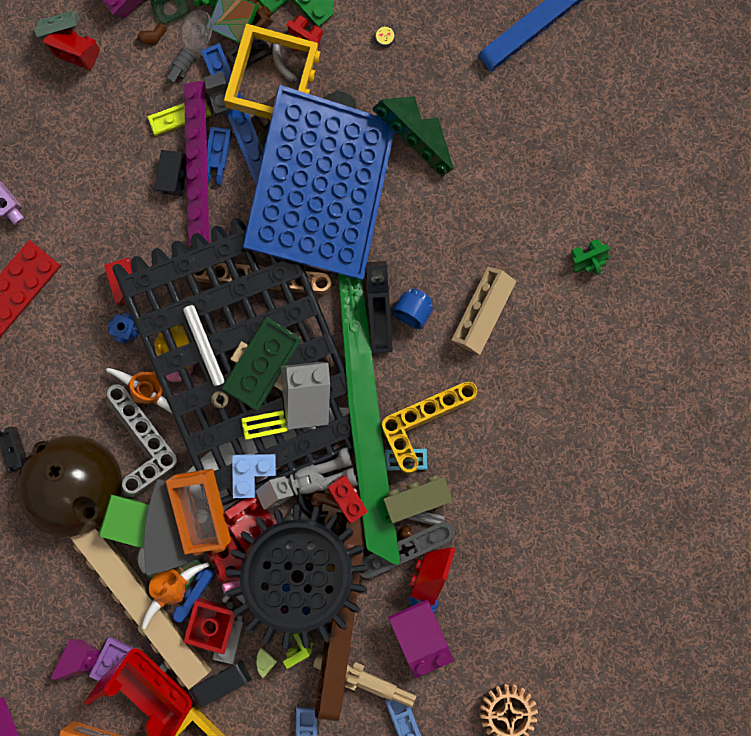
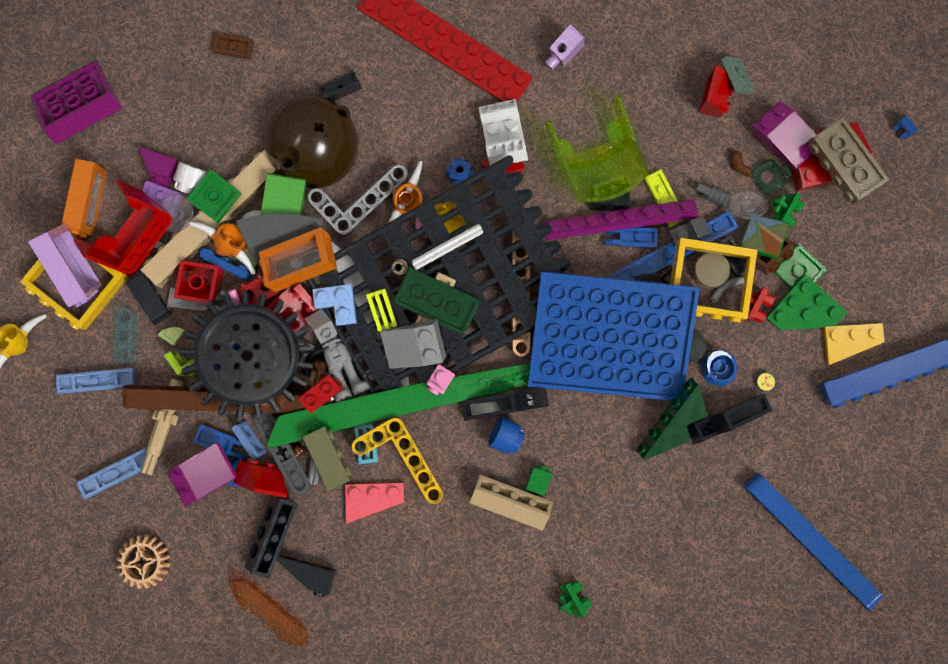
camera: 75 degrees right, 0 degrees up
(85, 276) = (503, 131): none -> white plate
(94, 625) = (187, 177): none -> white piece
(116, 598) = (214, 196): none -> green plate
(119, 641) = (174, 204): none -> clear dish
(140, 172) = (605, 169): none -> clear neon green windscreen
(250, 716) = (121, 328): none -> clear light blue beam
(262, 77) = (711, 270): none -> dark tan head
(347, 371) = (440, 380): none -> bright pink bracket
(368, 82) = (721, 363): none -> blue hat
(382, 628) = (208, 436): none -> blue hinge
(389, 585) = (249, 440): none -> medium blue tile
(419, 76) = (729, 419): none -> black slope
(463, 279) = (539, 480): none -> green brick
(465, 462) = (371, 498): none -> coral wing
(494, 570) = (270, 536): none -> black brick
(540, 530) = (312, 576): none -> black slope
(567, 587) = (263, 606): none -> clear orange brick

